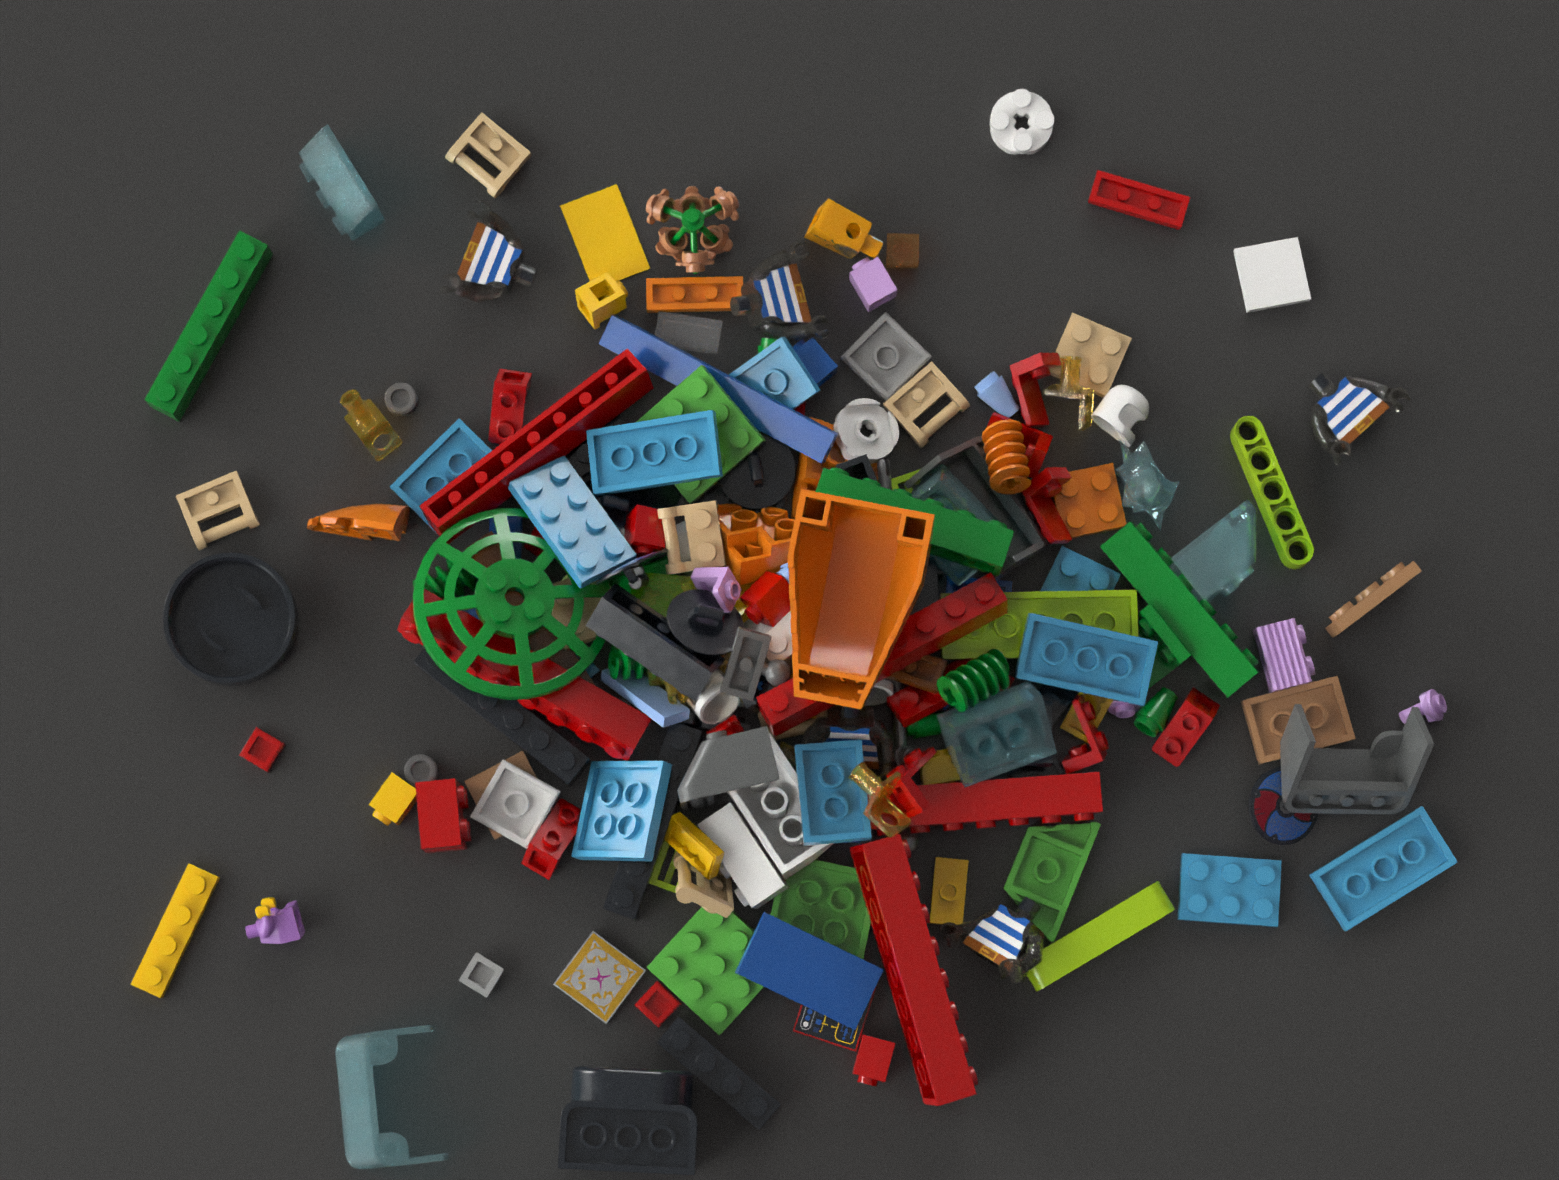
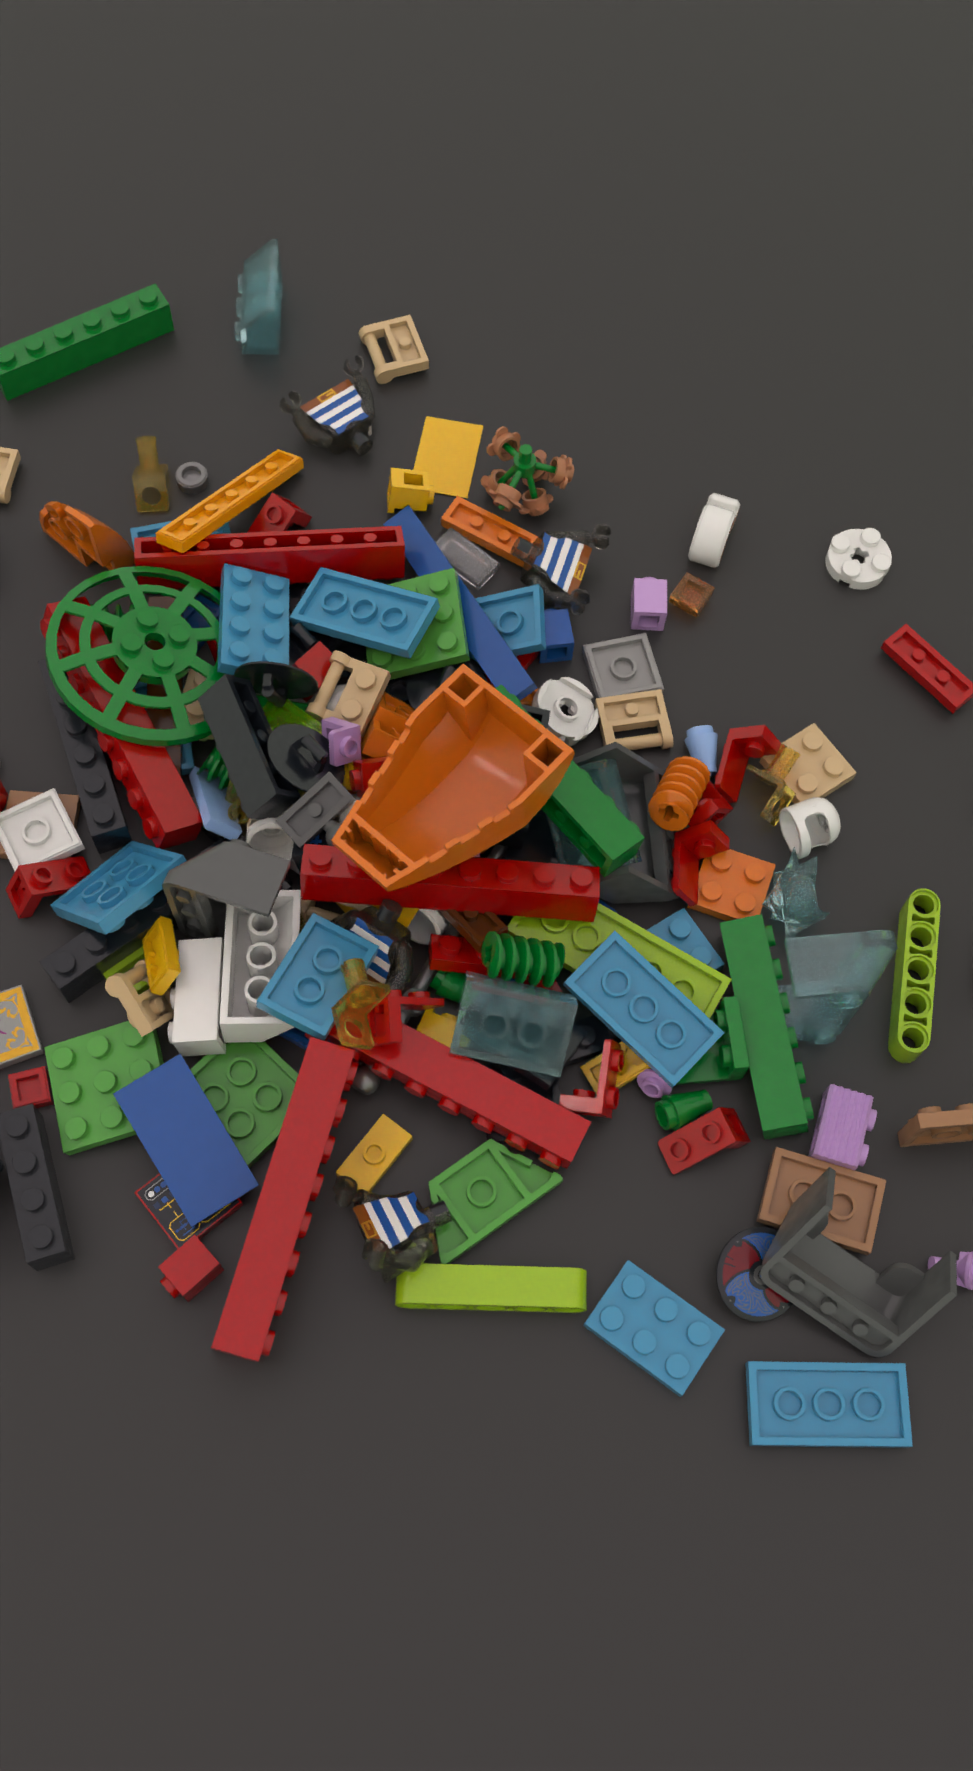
camera: 30 degrees right, 15 degrees down
(465, 412) = (229, 501): none -> light orange tile
(830, 230) = (647, 544): light orange torso -> none
(885, 174) = (713, 530): none -> white animal

